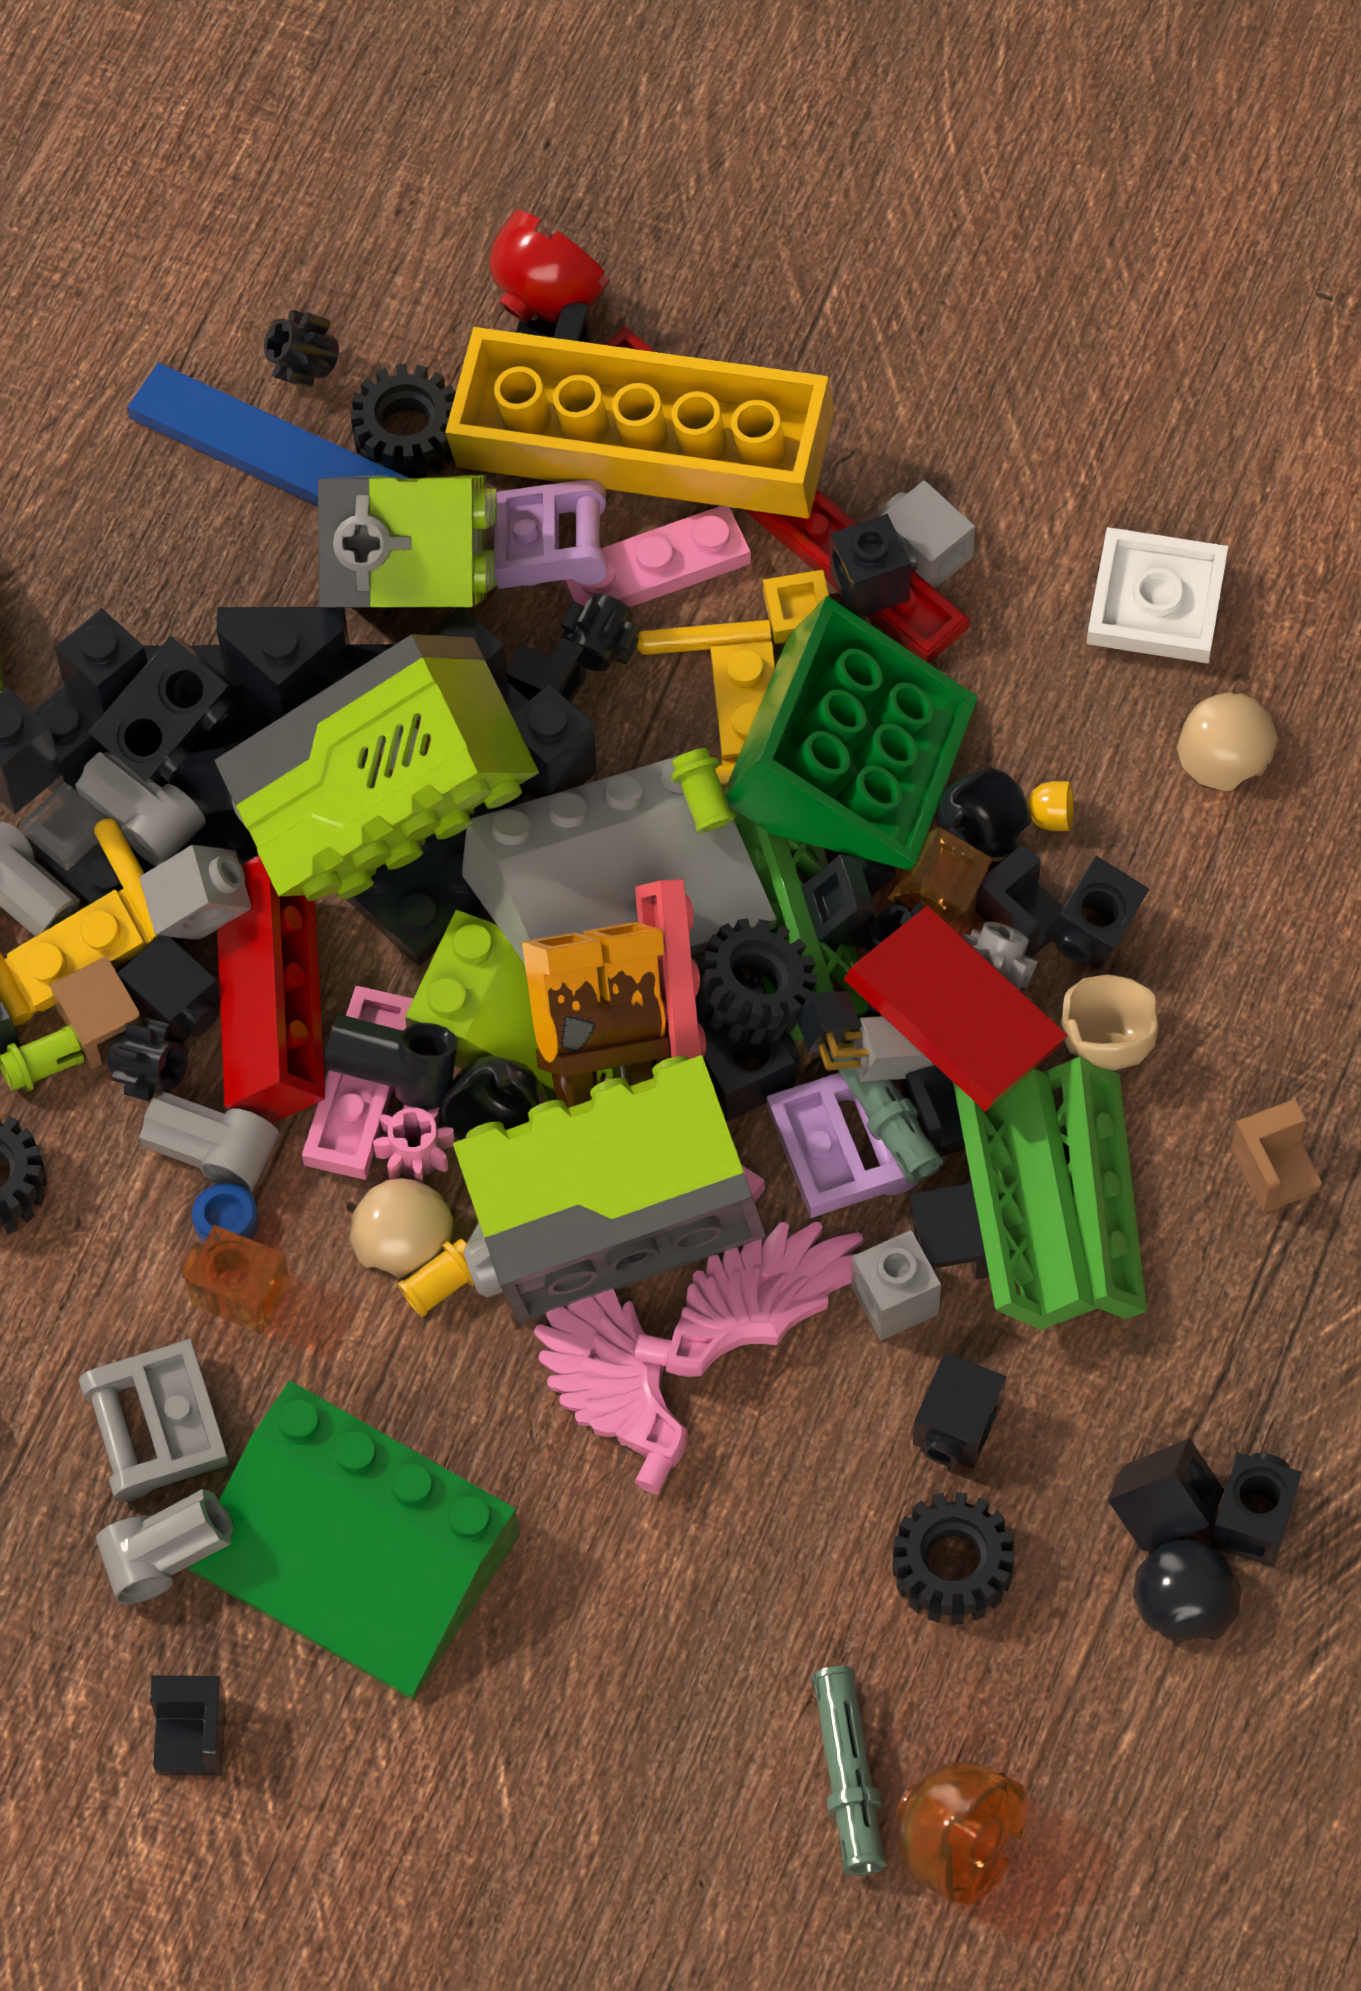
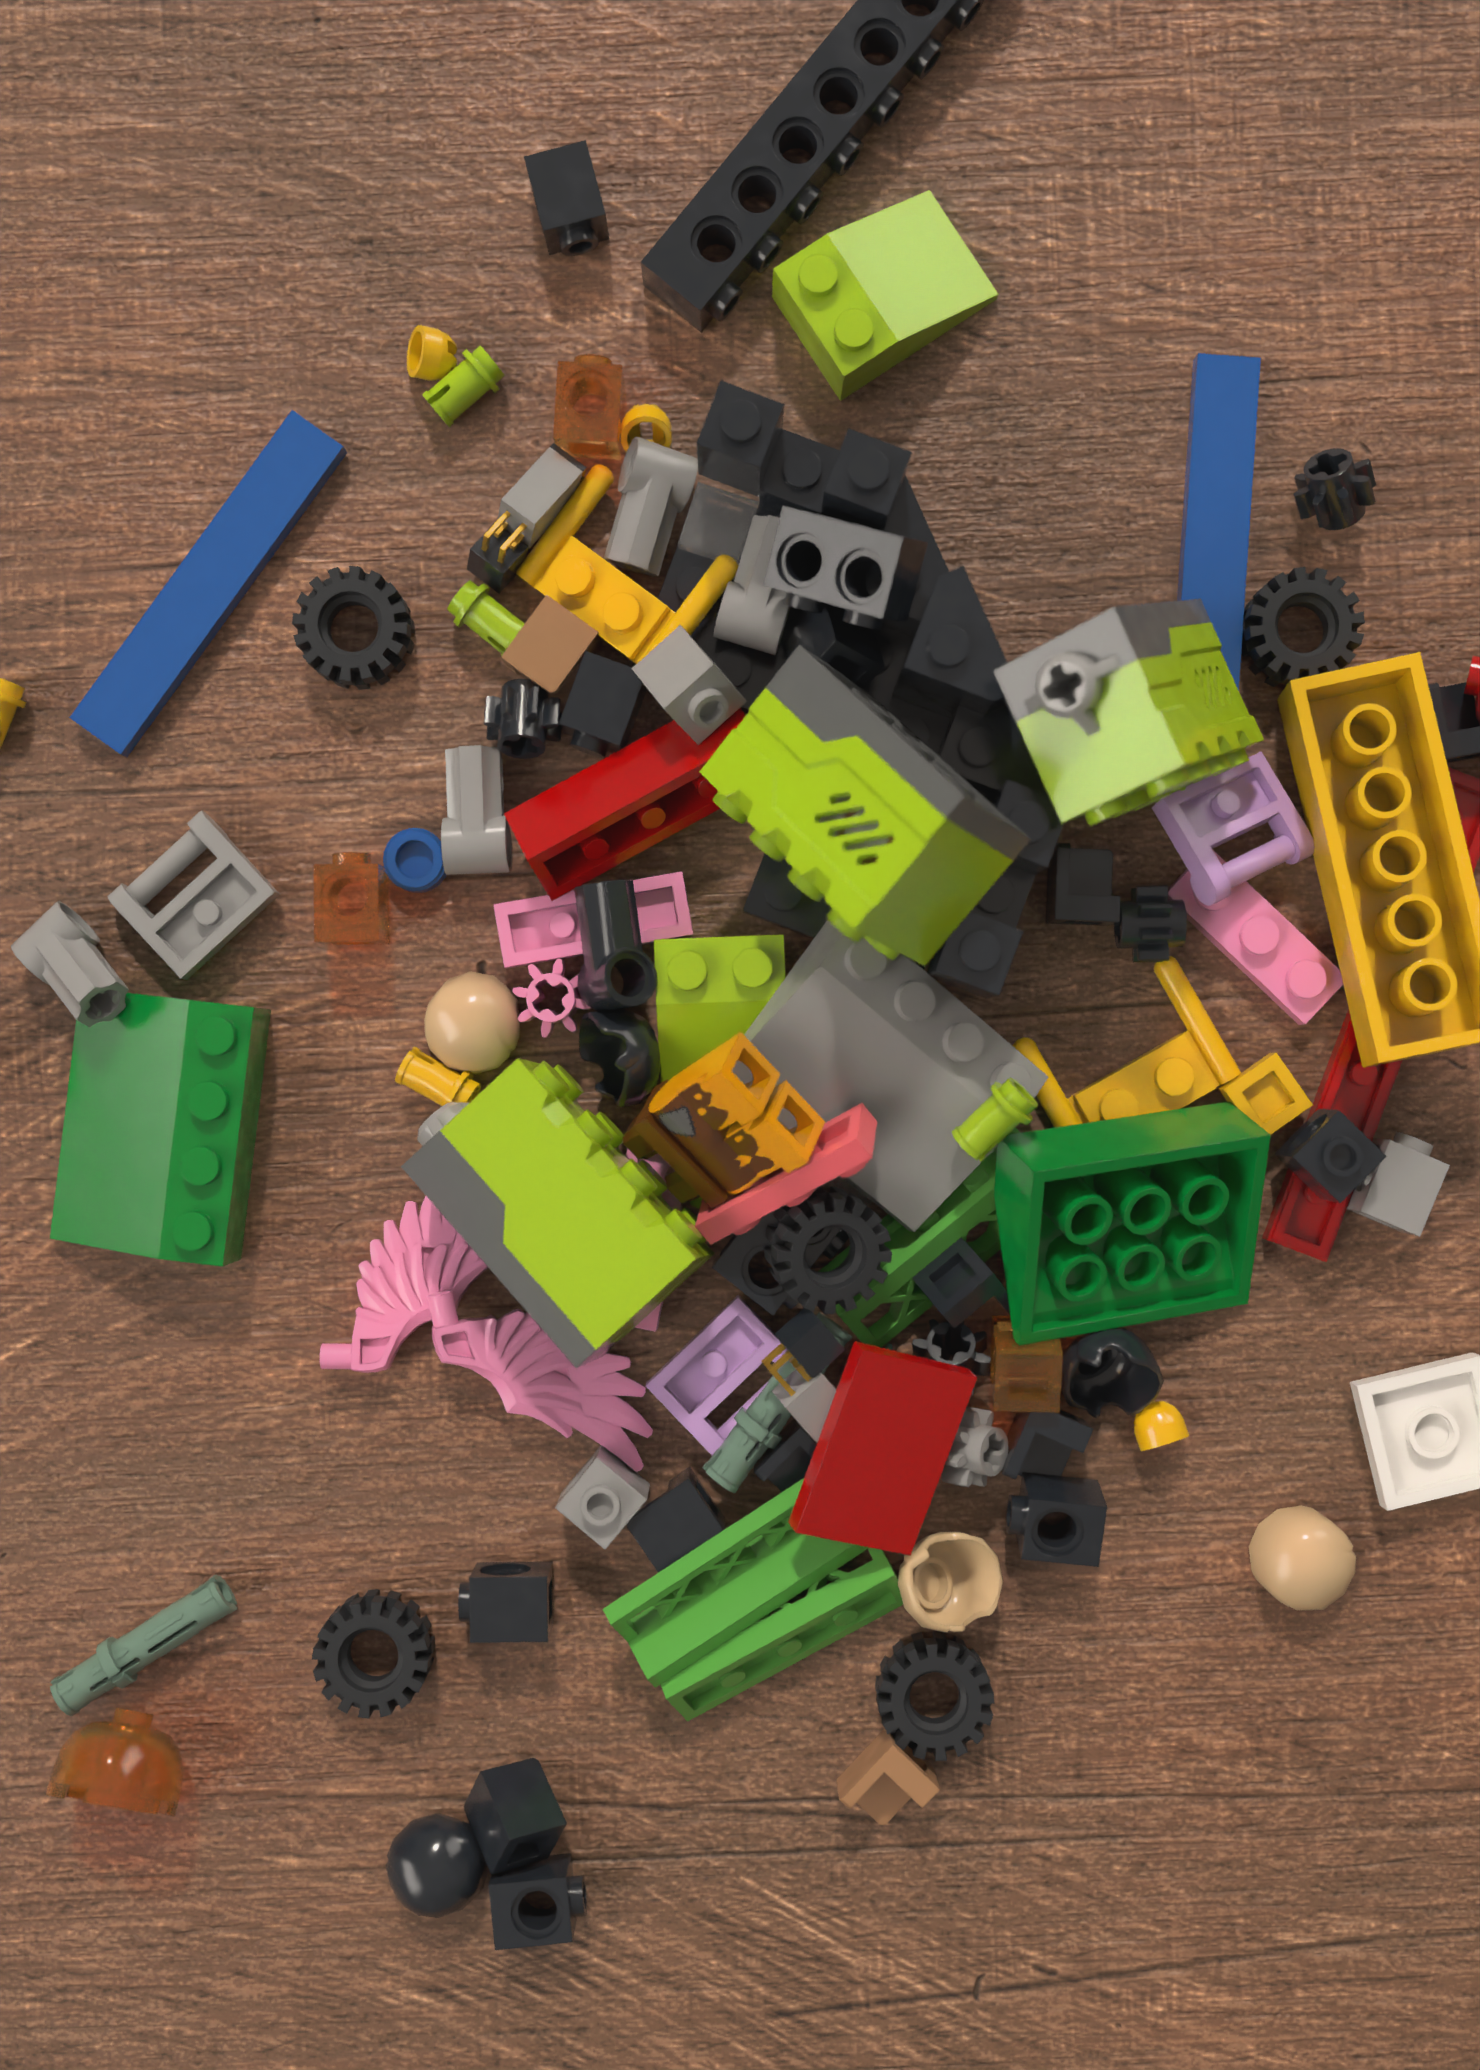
camera: 60 degrees right, 25 degrees up
(1219, 1052) = (938, 1733): none -> black tyre

